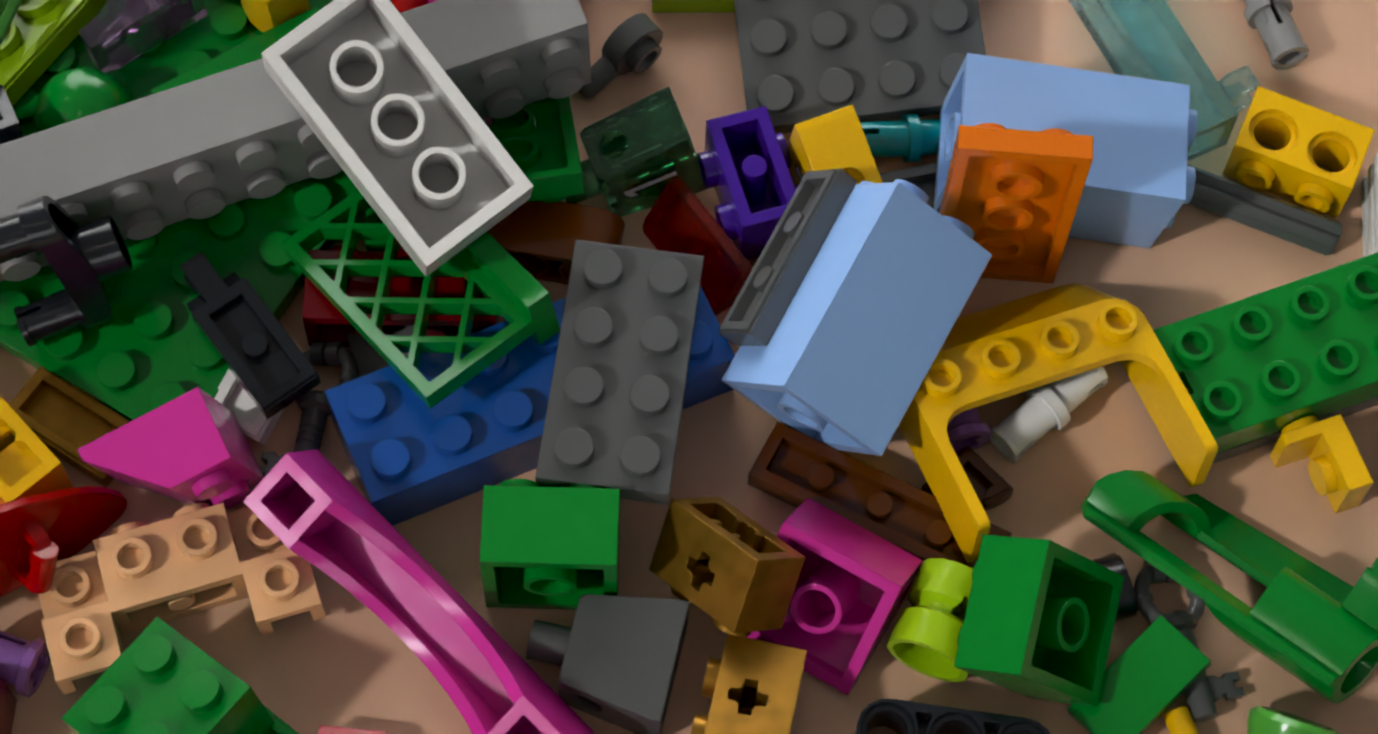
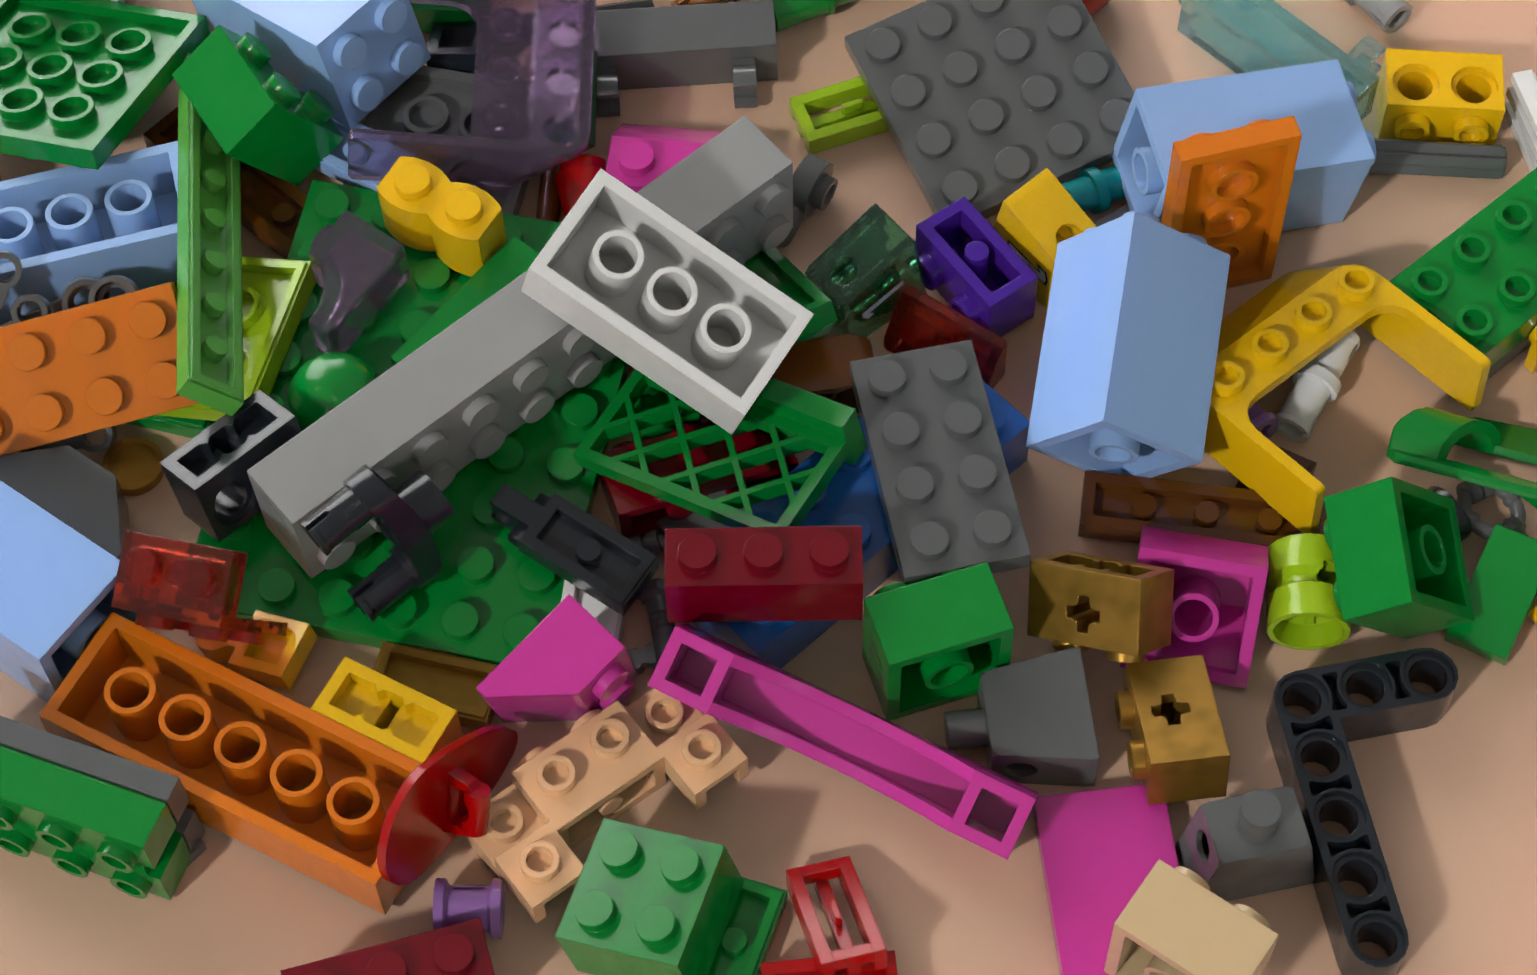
camera: 15 degrees left, 5 degrees down
(397, 427) = (763, 574): none -> dark red brick
(787, 257) = (1046, 317): dark grey tile -> none

